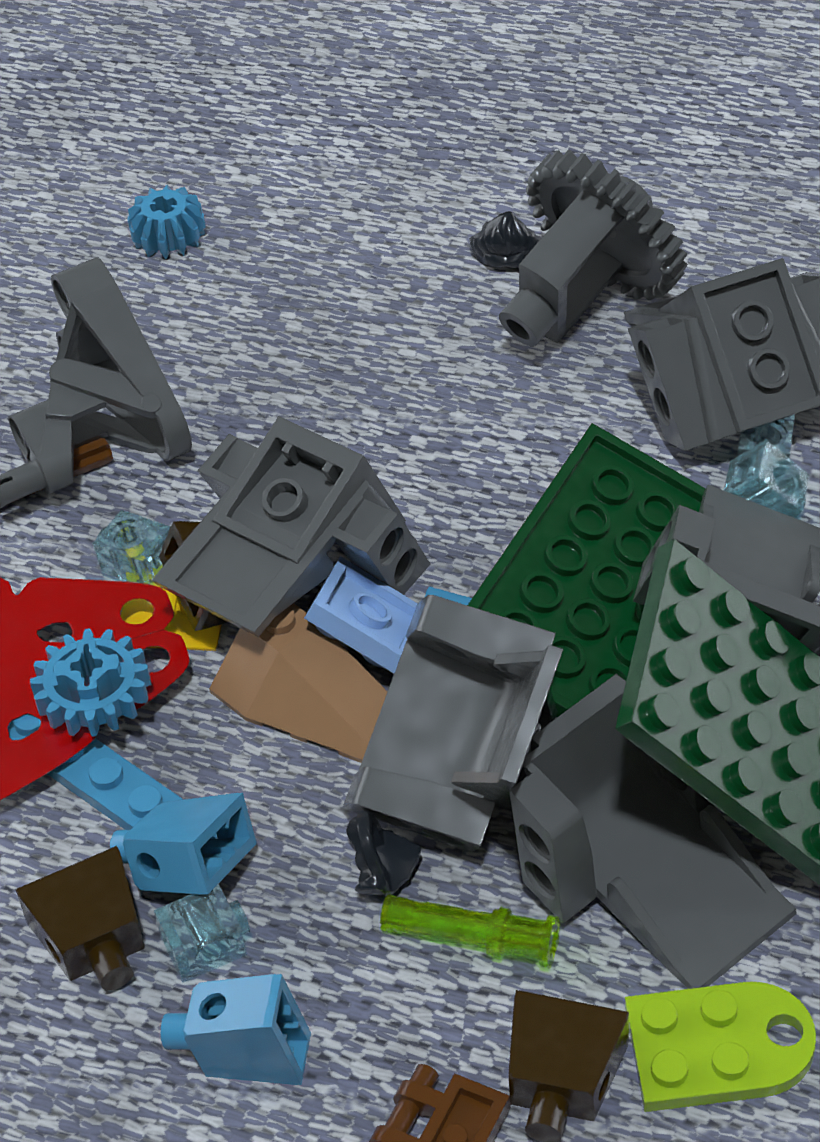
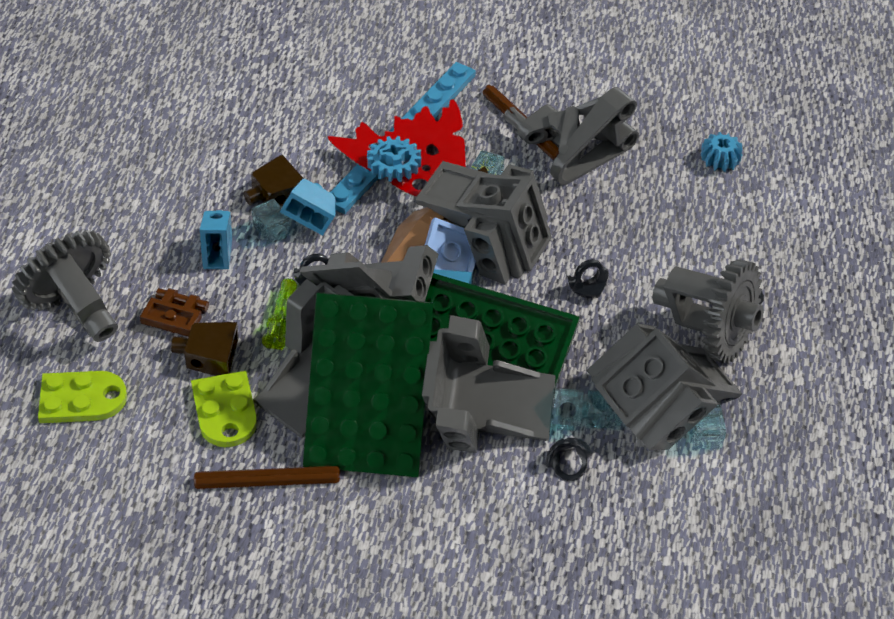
camera: 75 degrees right, 0 degrees up
(459, 434) = (592, 287): none -> black piece

